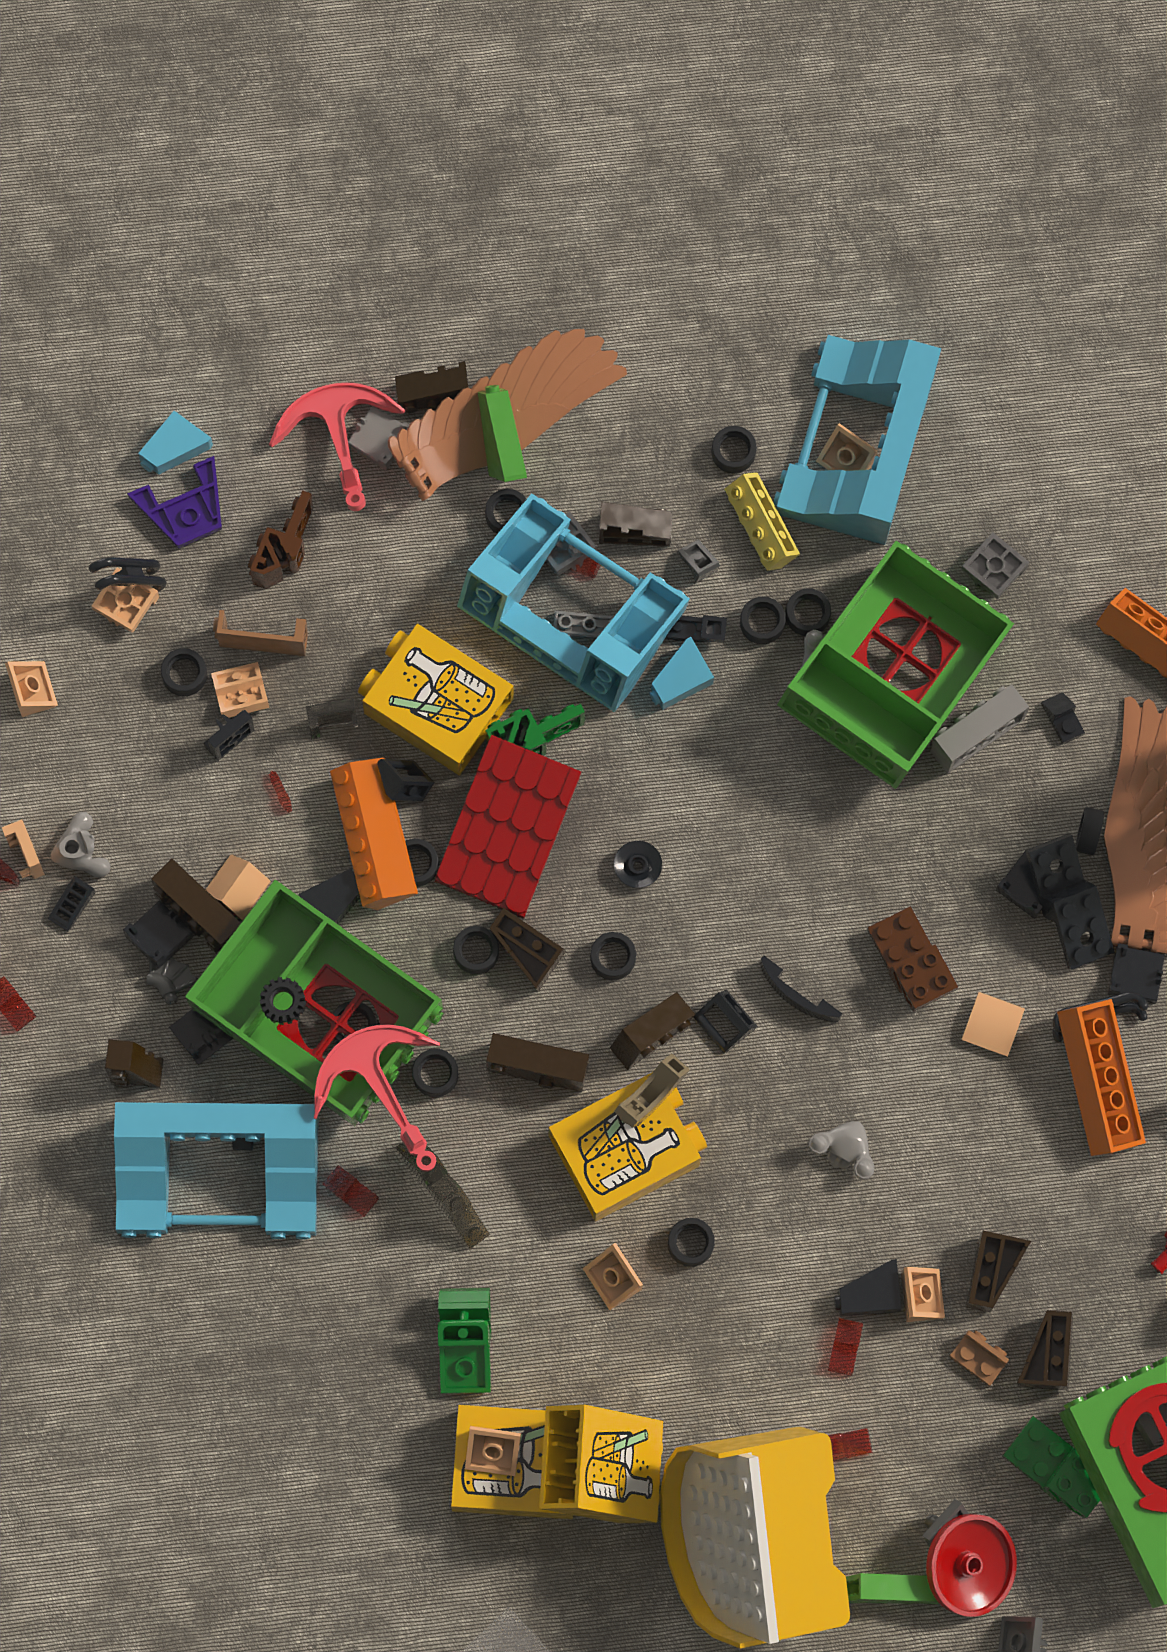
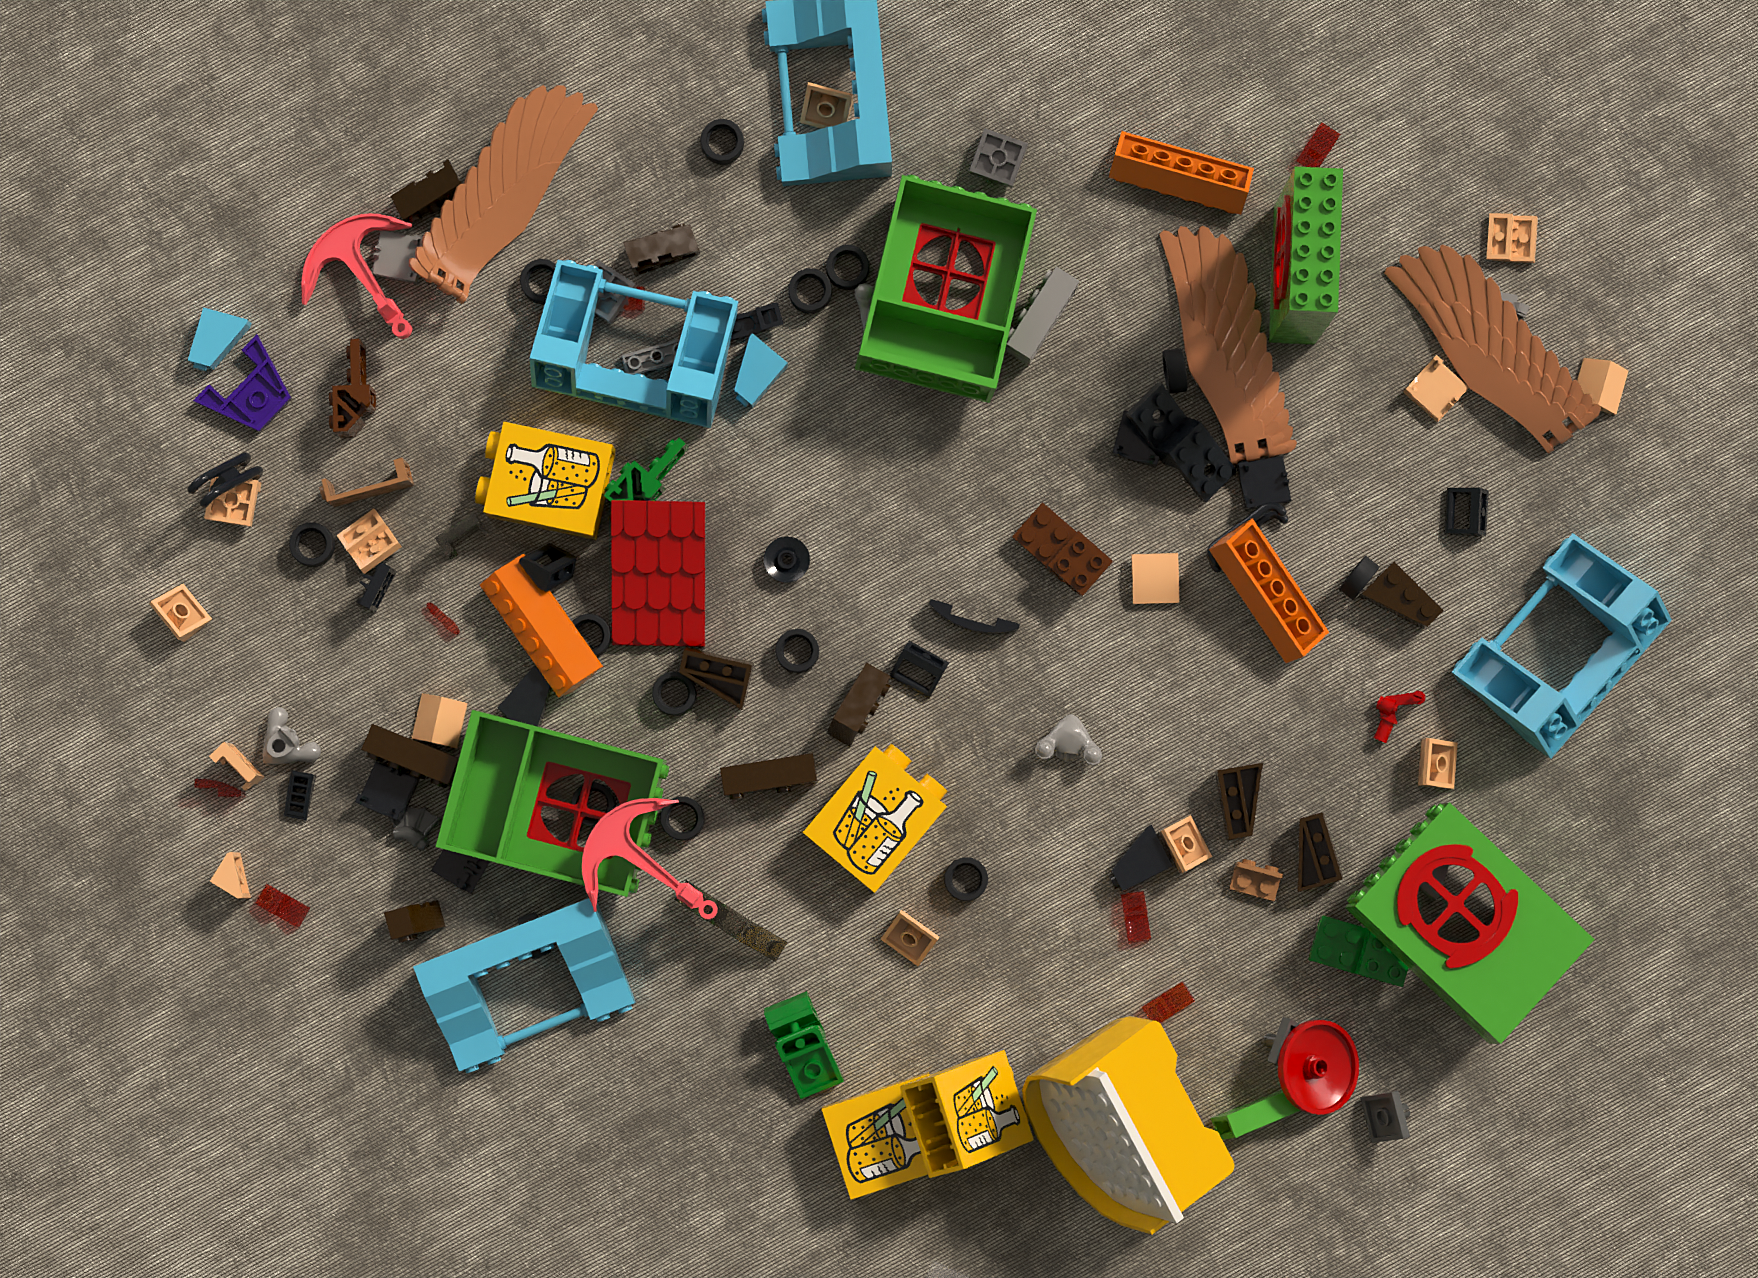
camera: 15 degrees left, 10 degrees up
(272, 990) = (538, 818): black tyre -> none
(351, 1191) = (650, 952): clear red slope -> none
(492, 1451) = (868, 1139): light nougat slope -> none
(500, 435) = (508, 215): bright green slope -> none
(652, 1092) = (881, 767): dark tan arch -> none
(699, 560) = (730, 257): dark grey slope -> none
(762, 521) = (774, 200): light yellow brick -> none
(1063, 718) = (1111, 273): black slope -> none

